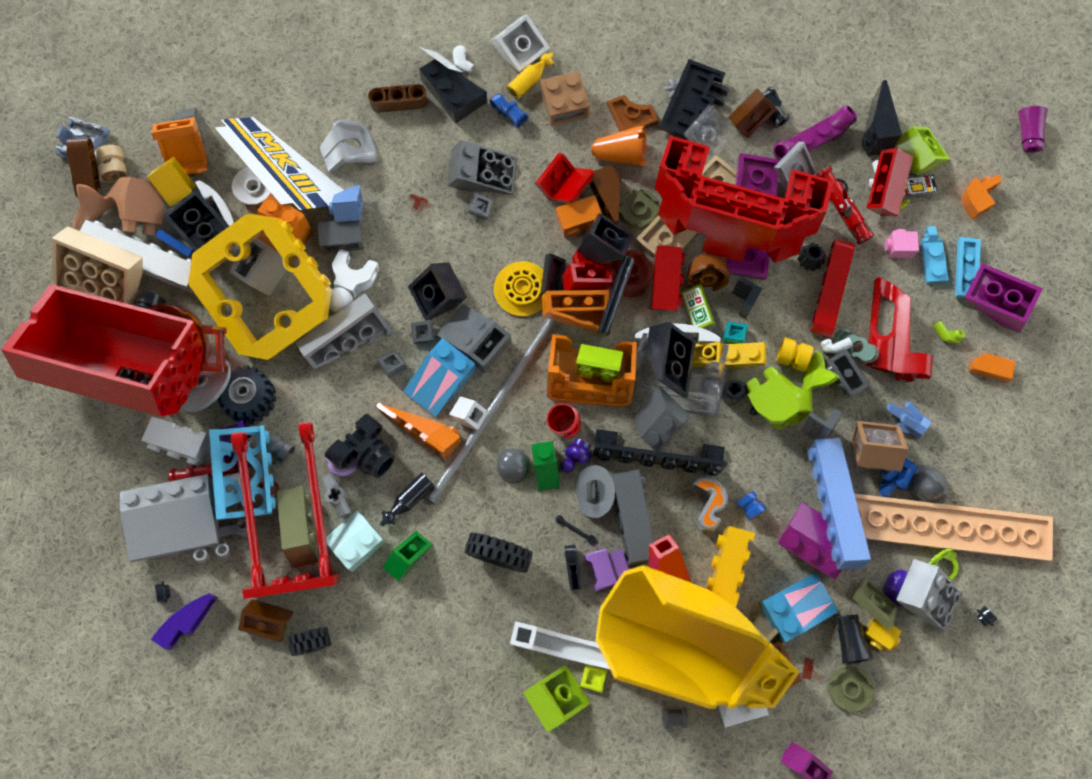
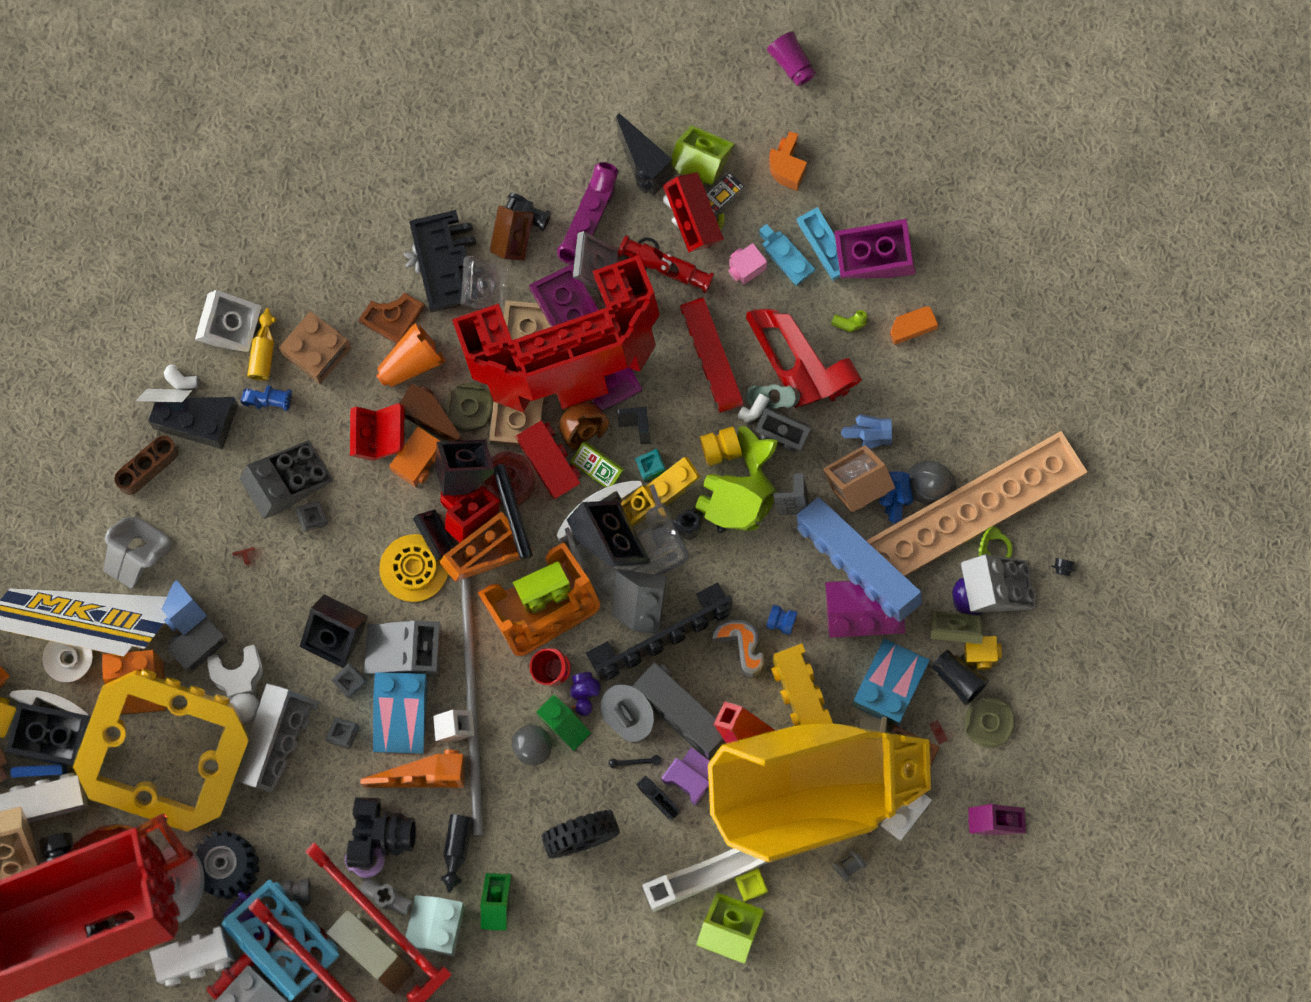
camera: 30 degrees left, 0 degrees up
(261, 269) = (146, 732): light grey slope -> none
(811, 256) = (670, 338): black piece -> none

